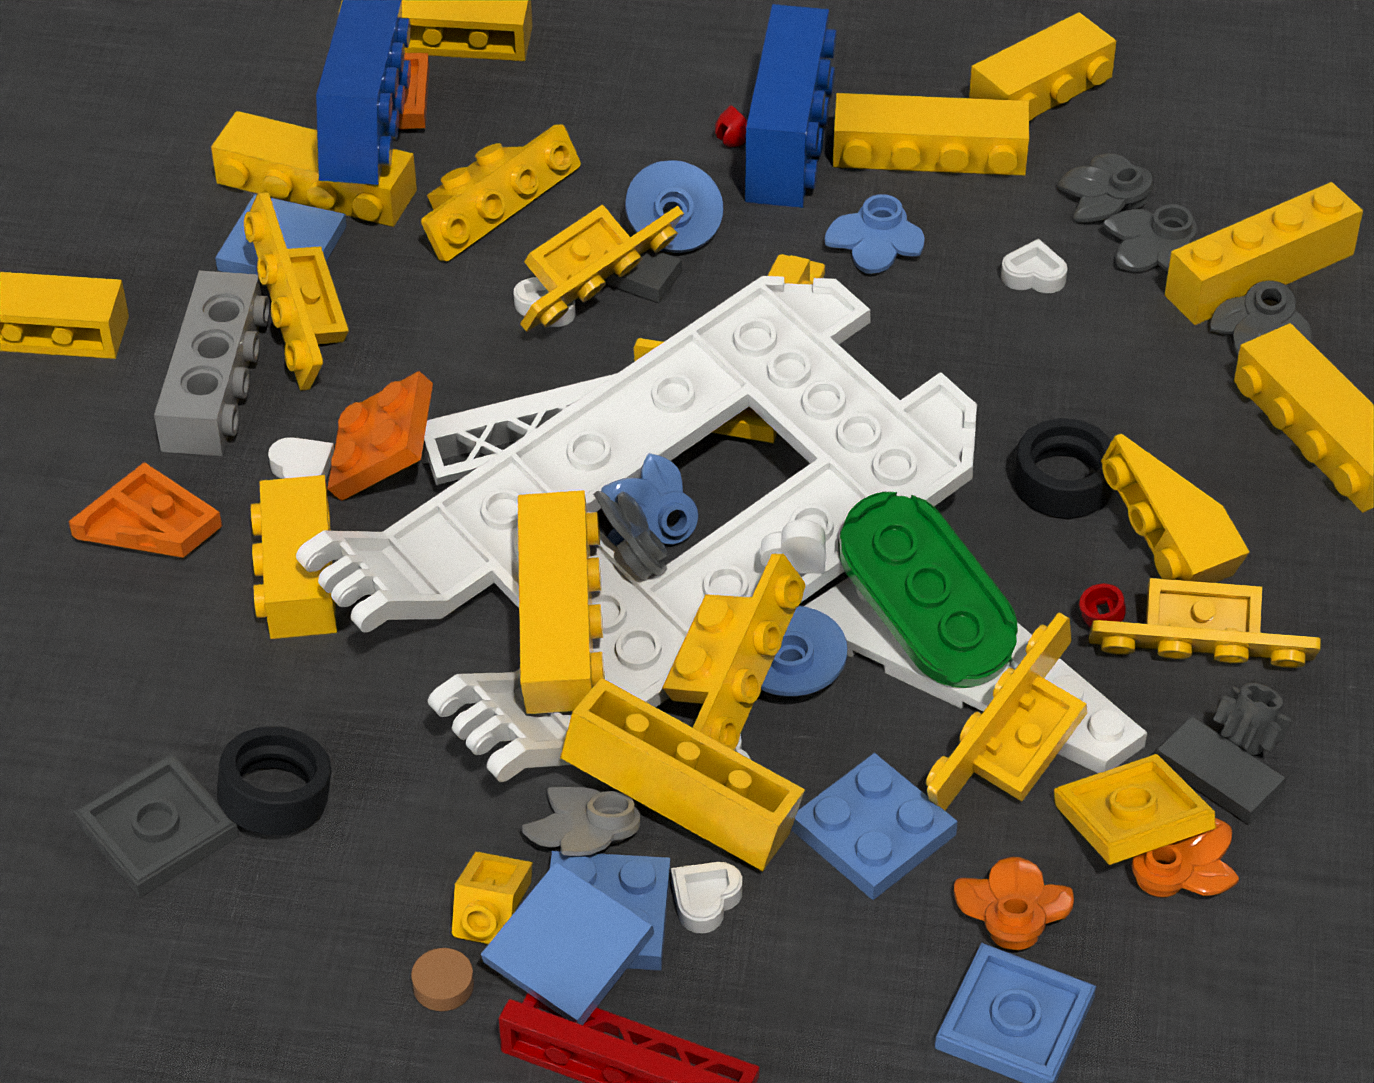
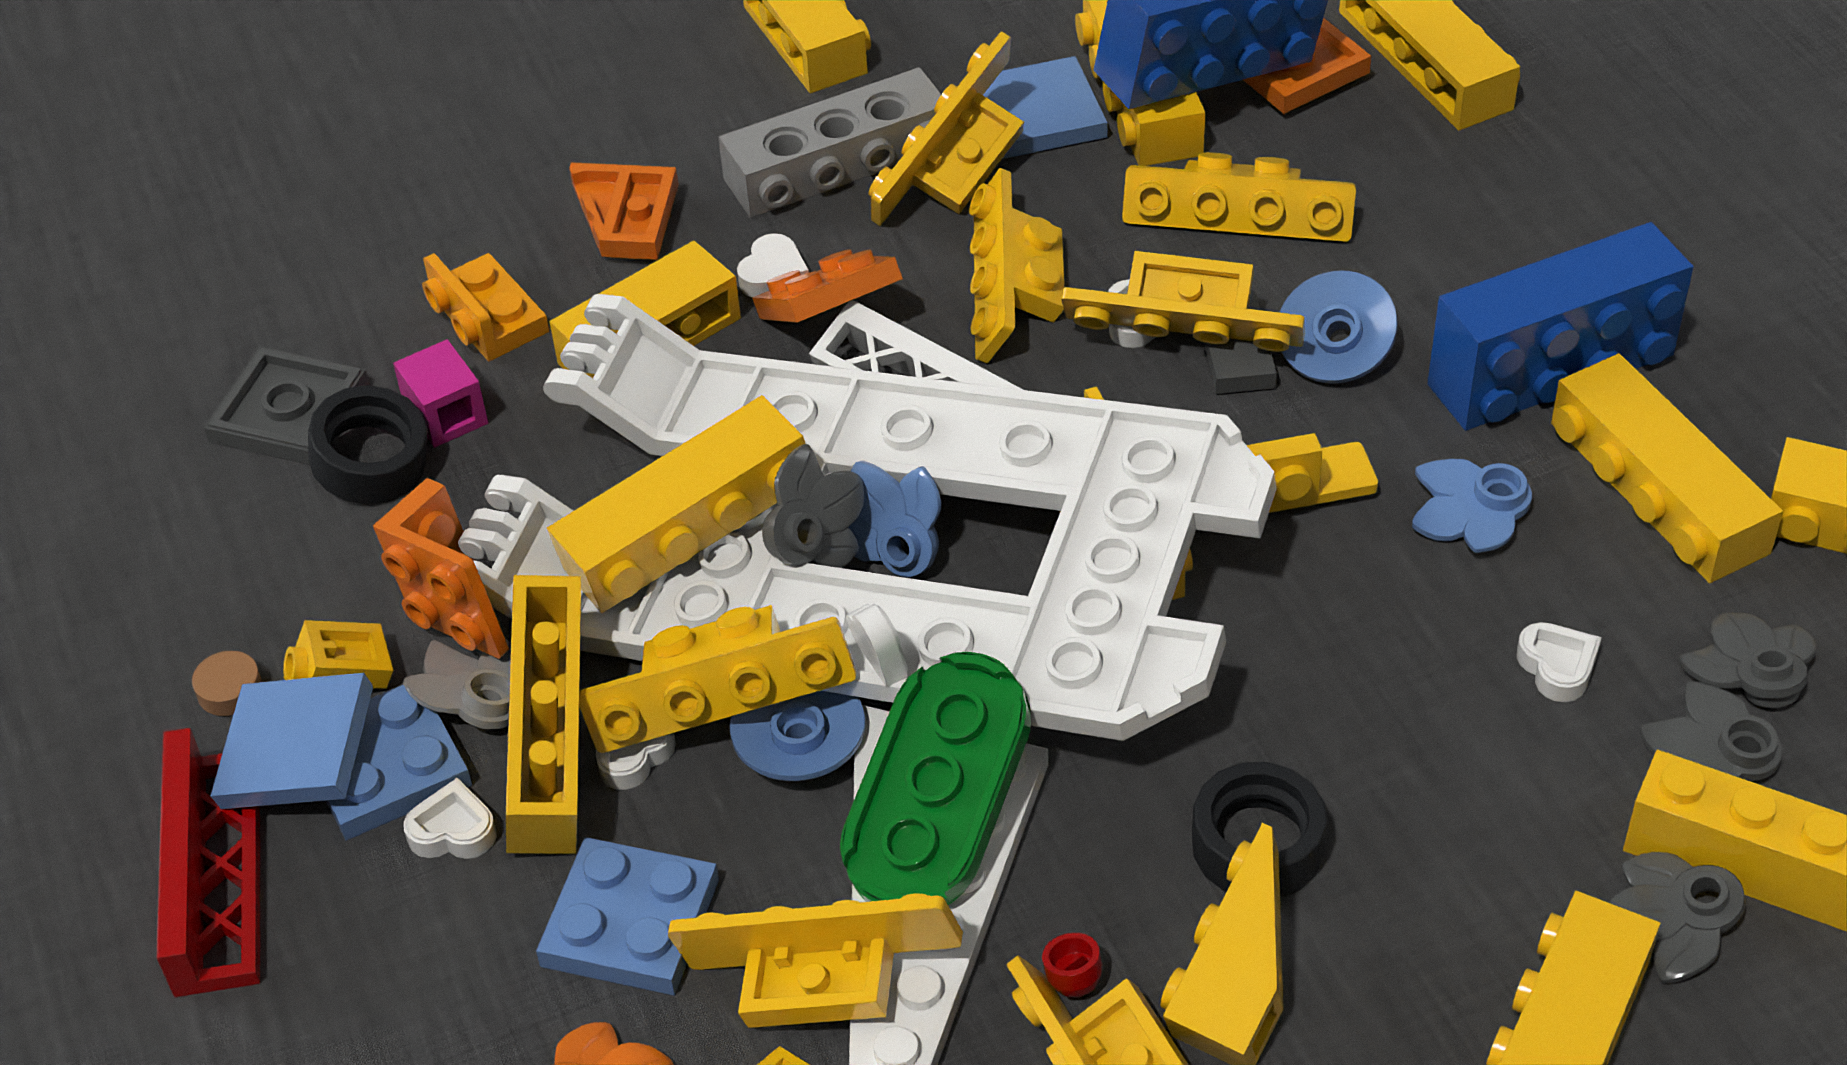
camera: 60 degrees right, 0 degrees up
(168, 650) = (484, 305): none -> light orange bracket
(251, 702) = (443, 391): none -> dark pink brick
(440, 336) = (1014, 265): none -> yellow bracket
(501, 779) = (434, 574): none -> orange bracket

